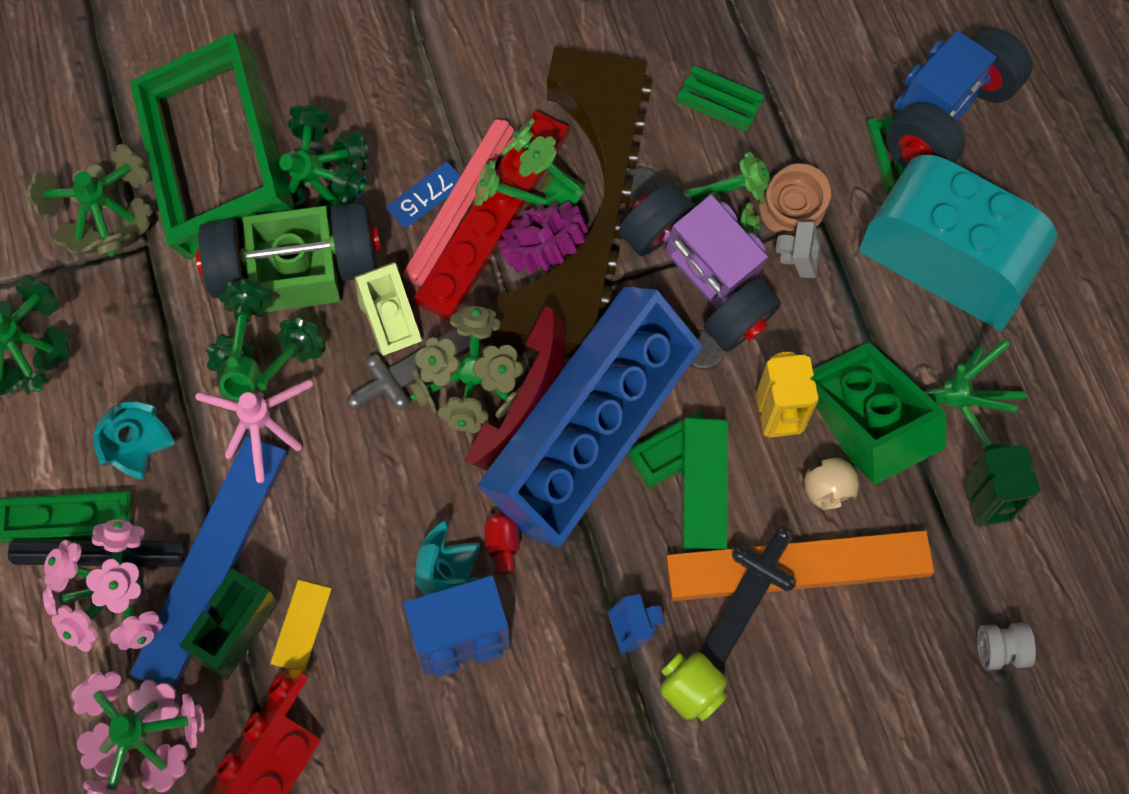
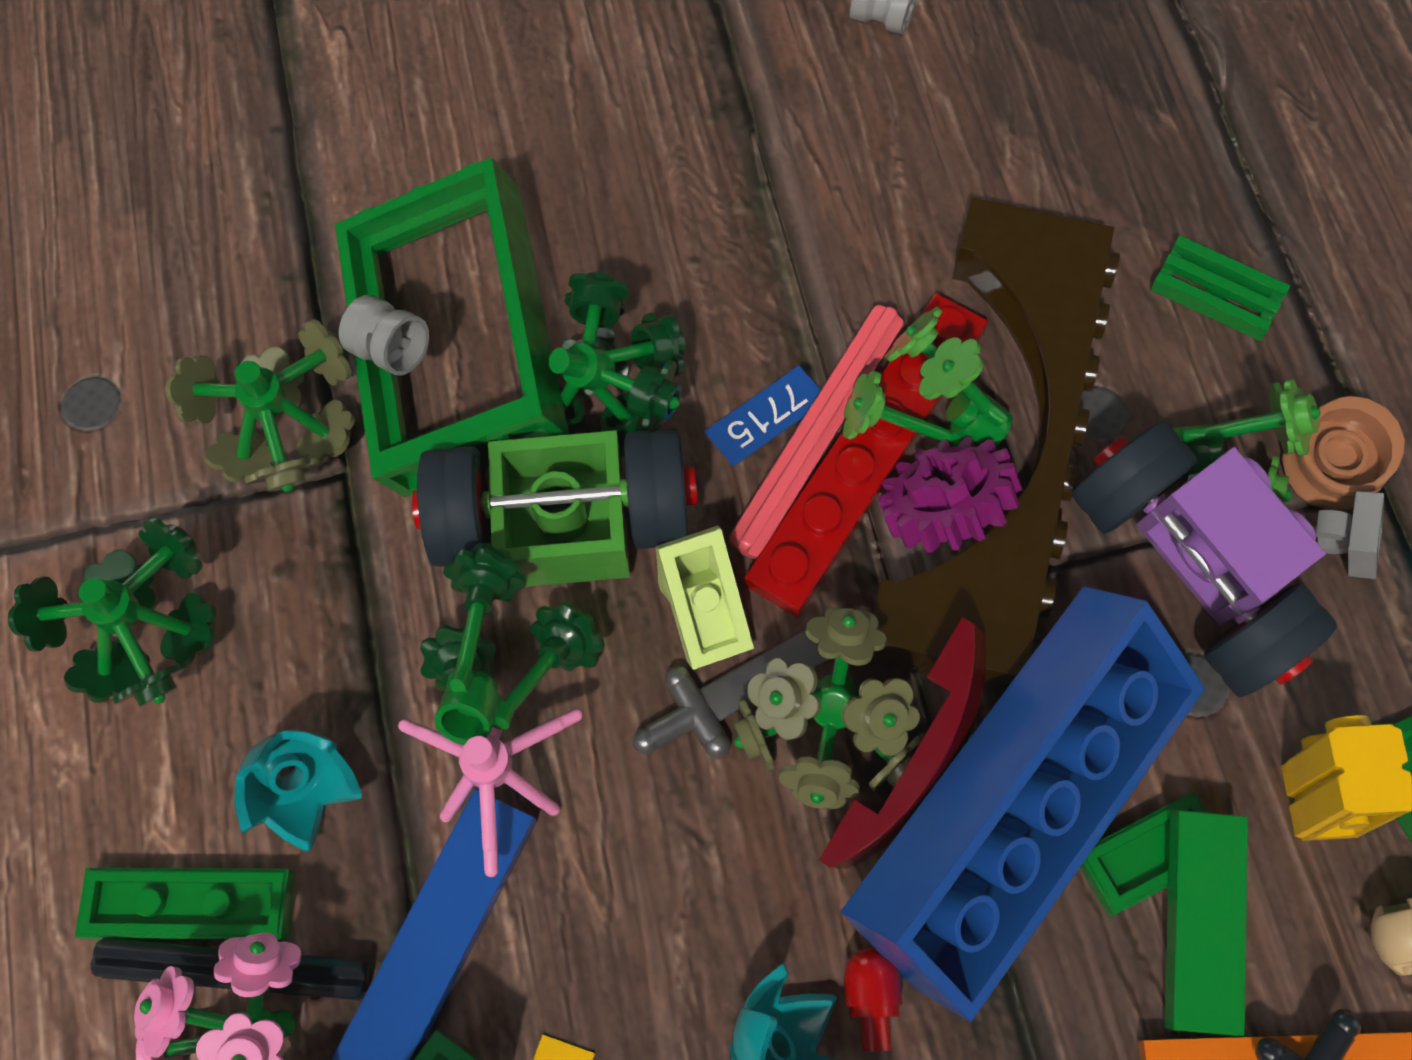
camera: 10 degrees right, 0 degrees up
(173, 152) = (385, 335): none -> light grey wheel

